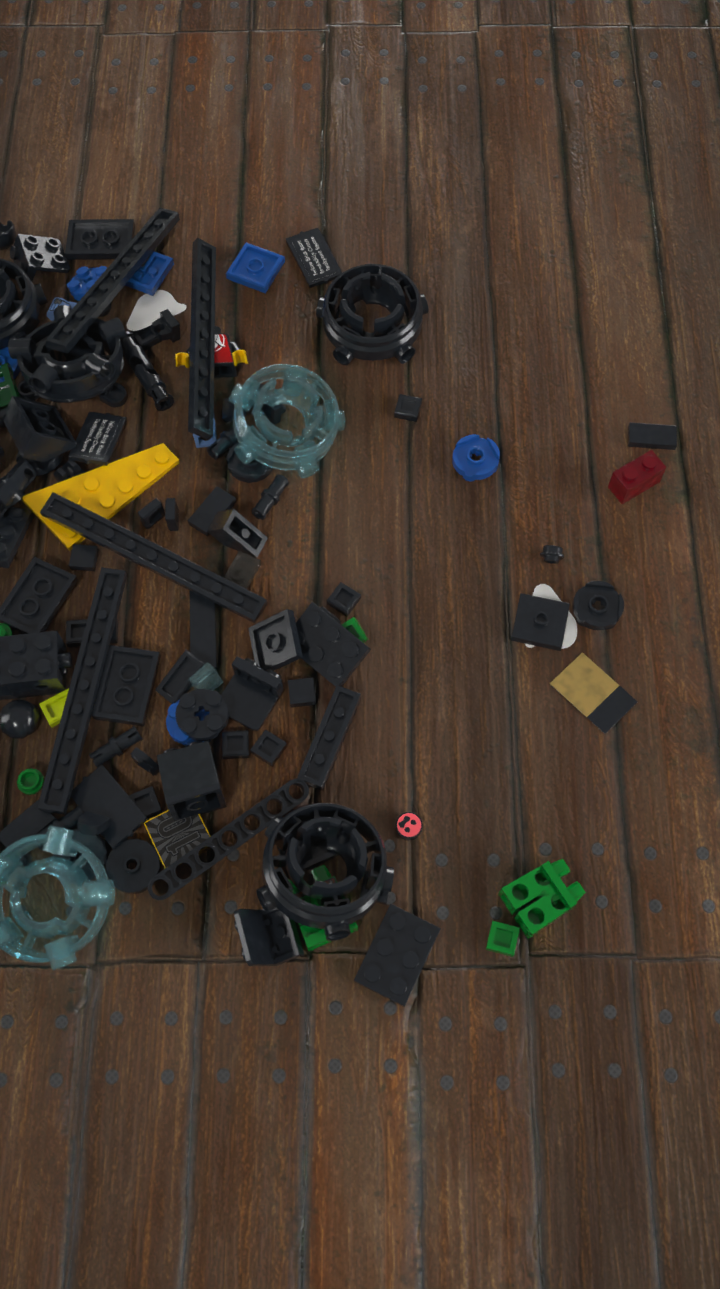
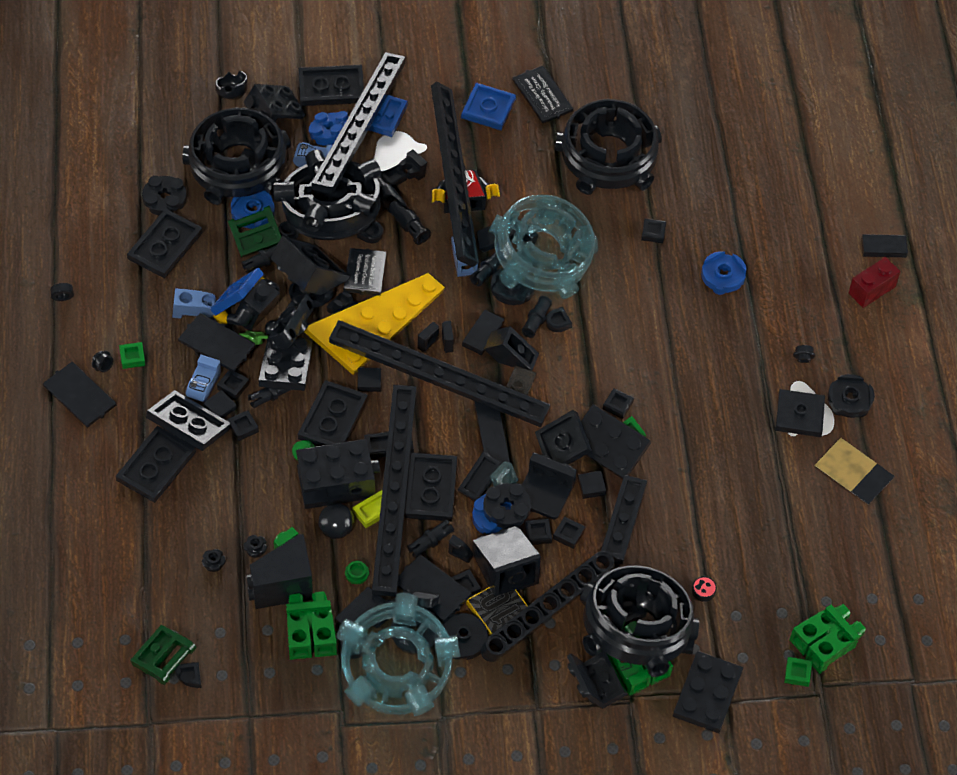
camera: 10 degrees left, 10 degrees down
(293, 502) = (558, 320): none -> black tile

